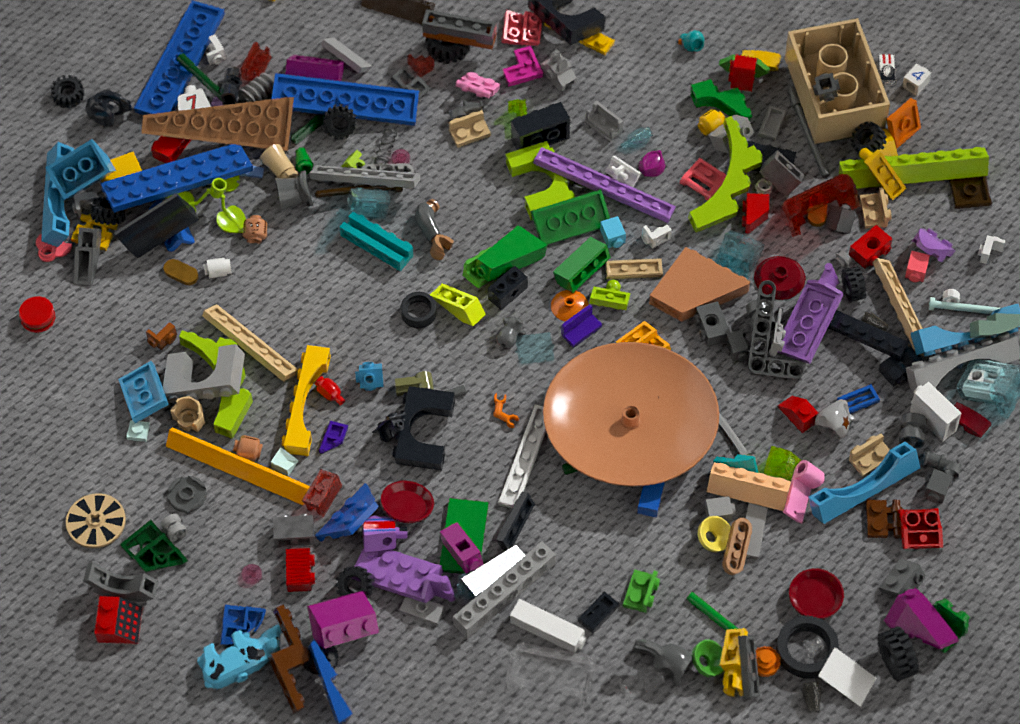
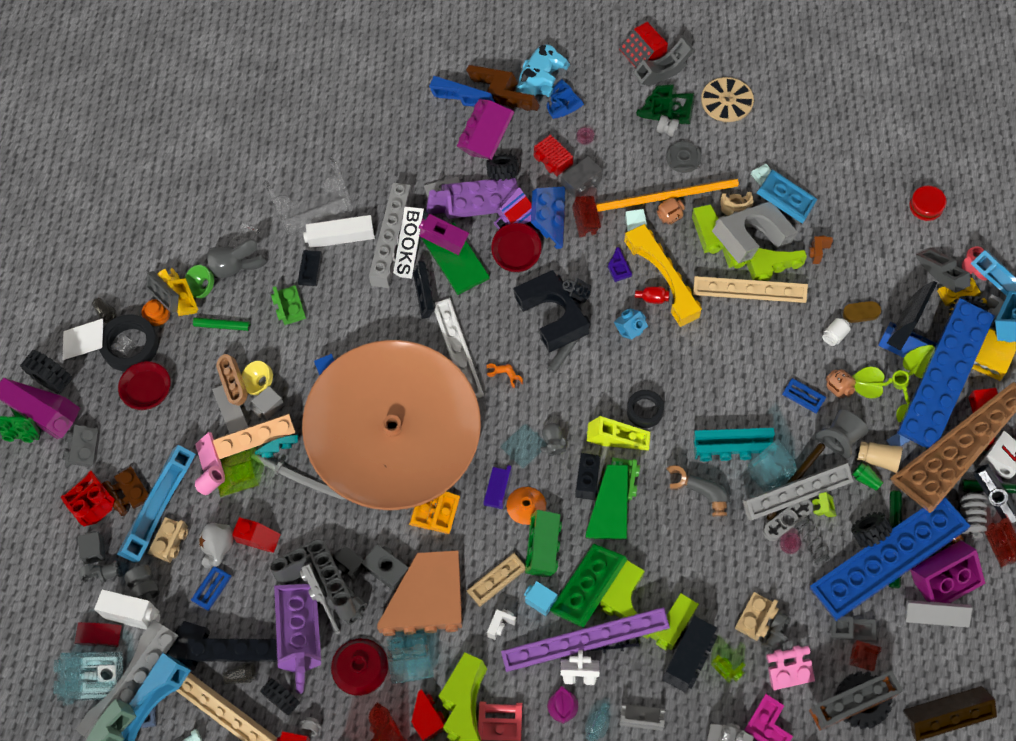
camera: 145 degrees right, 5 degrees up
(293, 255) = (815, 409): none -> blue tile
(421, 380) = (591, 344): olive piece -> none
(611, 296) = (495, 533): lime plate -> none

